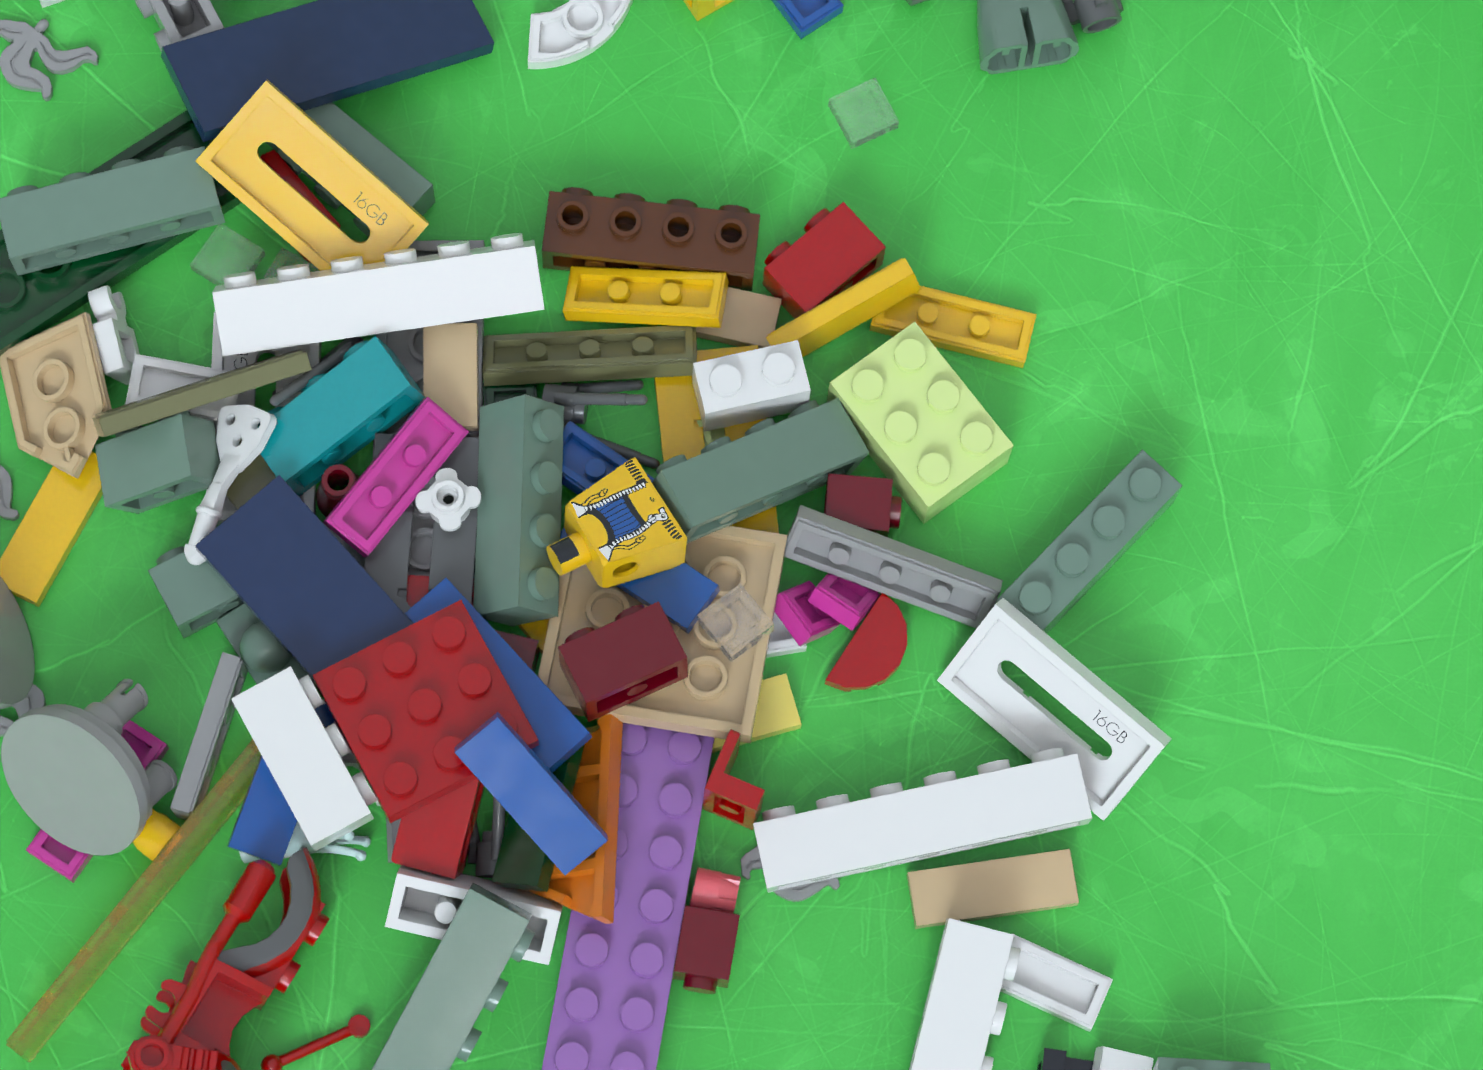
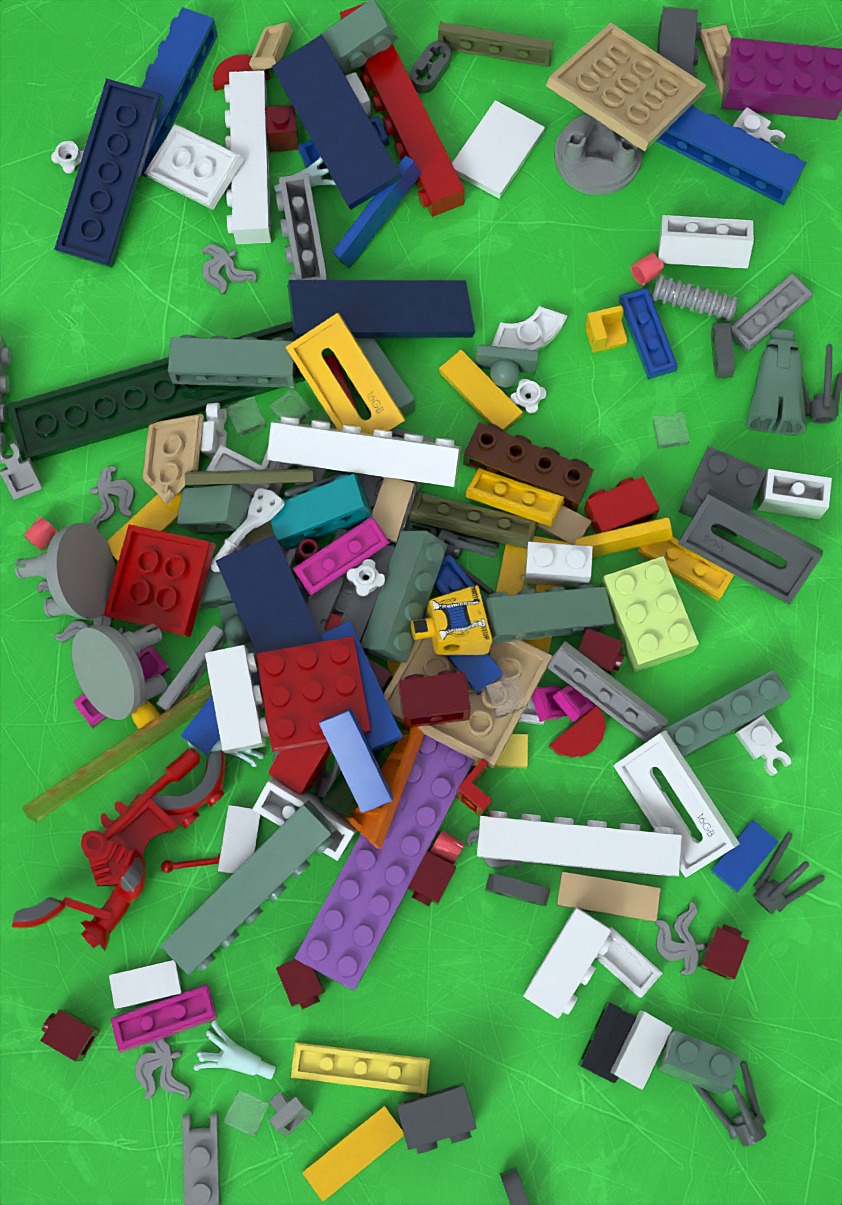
camera: 25 degrees right, 0 degrees up
(107, 606) = (159, 580): none -> red plate
(157, 294) = (246, 416): none -> clear tile
(373, 983) = (238, 838): none -> white tile
(533, 138) = (480, 391): none -> yellow tile
(561, 80) = (506, 363): none -> sand green tile
(617, 109) = (532, 388): none -> white plate
(847, 922) = (517, 889): none -> dark grey beam
(976, 189) = (725, 476): none -> dark grey brick
(1091, 159) = (794, 494): none -> white brick
(1103, 307) = (775, 580): none -> dark grey piece
(1120, 941) = (674, 951): none -> light grey piece
(1156, 568) = (760, 740): none -> white plate
(1186, 760) = (742, 861): none -> blue tile
(1197, 916) = (724, 952): none -> dark red brick
(1244, 804) = (772, 894): none -> dark grey plant

